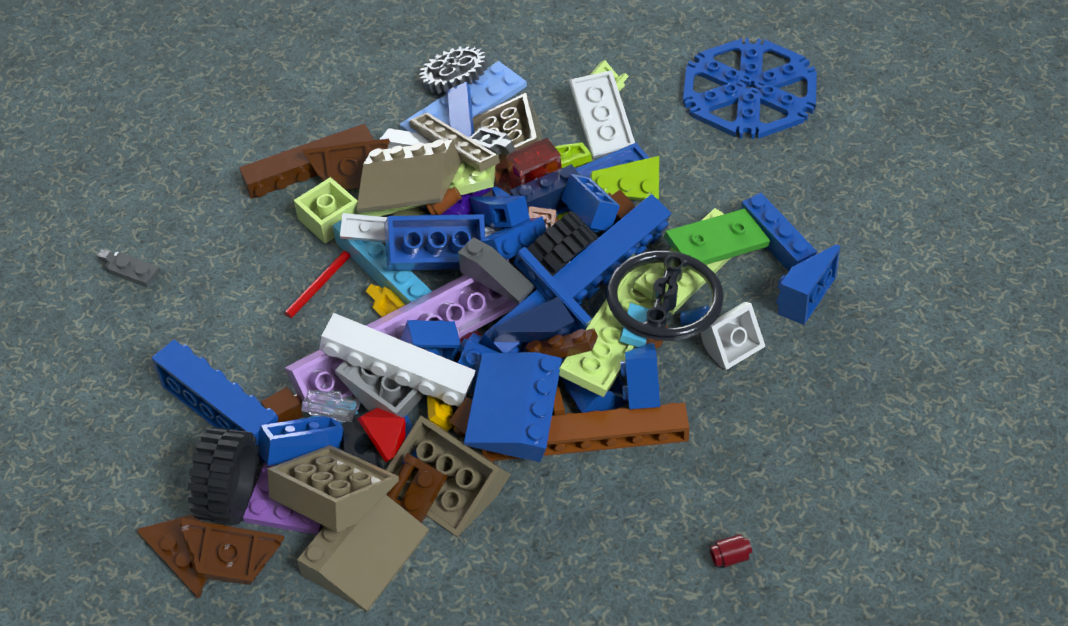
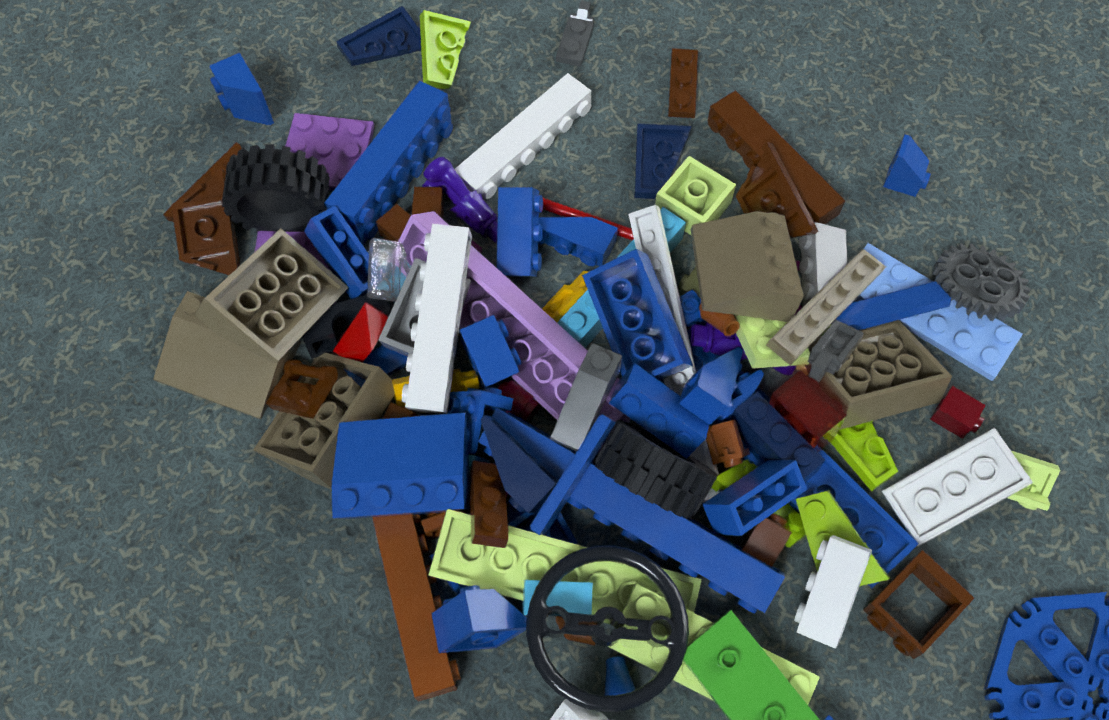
camera: 75 degrees right, 15 degrees up
(68, 404) = (382, 39): none -> dark blue wing
(90, 509) = (239, 90): none -> blue slope
(96, 360) = (440, 47): none -> lime wing
(165, 462) = (332, 141): none -> medium lavender plate
(209, 206) = (683, 83): none -> reddish brown plate
(224, 314) = (525, 136): none -> white brick
(267, 383) = (428, 200): none -> reddish brown brick
(274, 232) = (657, 156): none -> dark blue wing
(276, 357) = (468, 204): none -> dark purple piece
(313, 312) = (519, 231): none -> blue brick
(335, 287) = (580, 237): none -> blue slope
(347, 88) = (908, 169): none -> blue slope
(548, 103) = (959, 413): none -> dark red brick
(659, 180) = (832, 590): none -> white brick
(676, 133) = (940, 584): none -> reddish brown window

